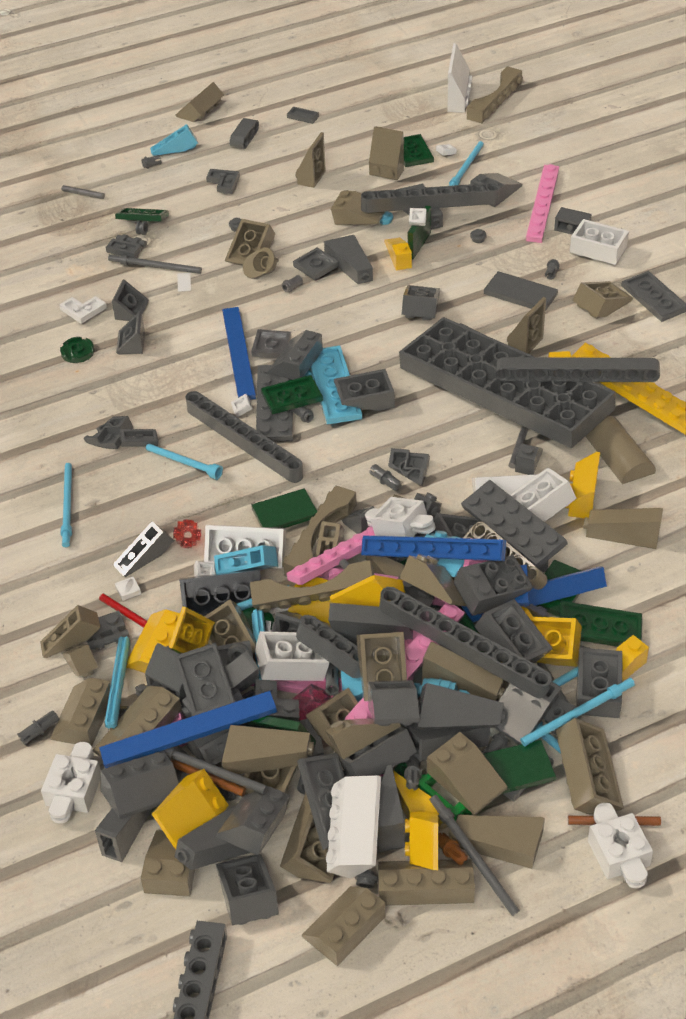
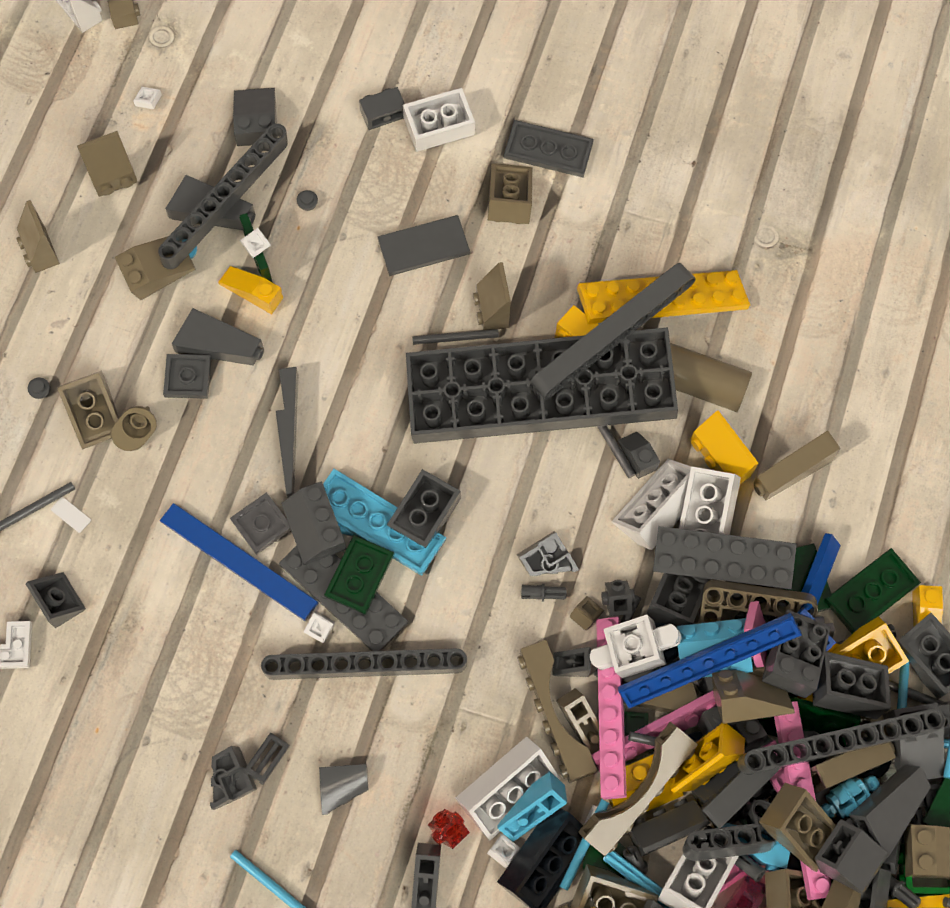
camera: 50 degrees left, 25 degrees up
(77, 350) = (66, 705): dark green tile -> none
(131, 336) = (108, 641): dark grey slope -> none
(160, 477) = (341, 785): none -> dark grey slope
(213, 470) = (380, 730): medium azure piece -> none
(284, 510) = (494, 713): dark green tile -> none
(289, 285) = (192, 424): flat silver pin -> none
(305, 414) = (391, 583): dark grey pin -> none
(344, 311) = (287, 425): none -> dark grey slope
(416, 151) = (105, 117): dark green tile -> none
(420, 302) = (346, 340): dark grey slope -> none
(456, 180) = (204, 138): medium azure bar -> none
(542, 204) = (323, 101): bright pink plate -> none
(552, 266) = (421, 185): dark grey pin -> none

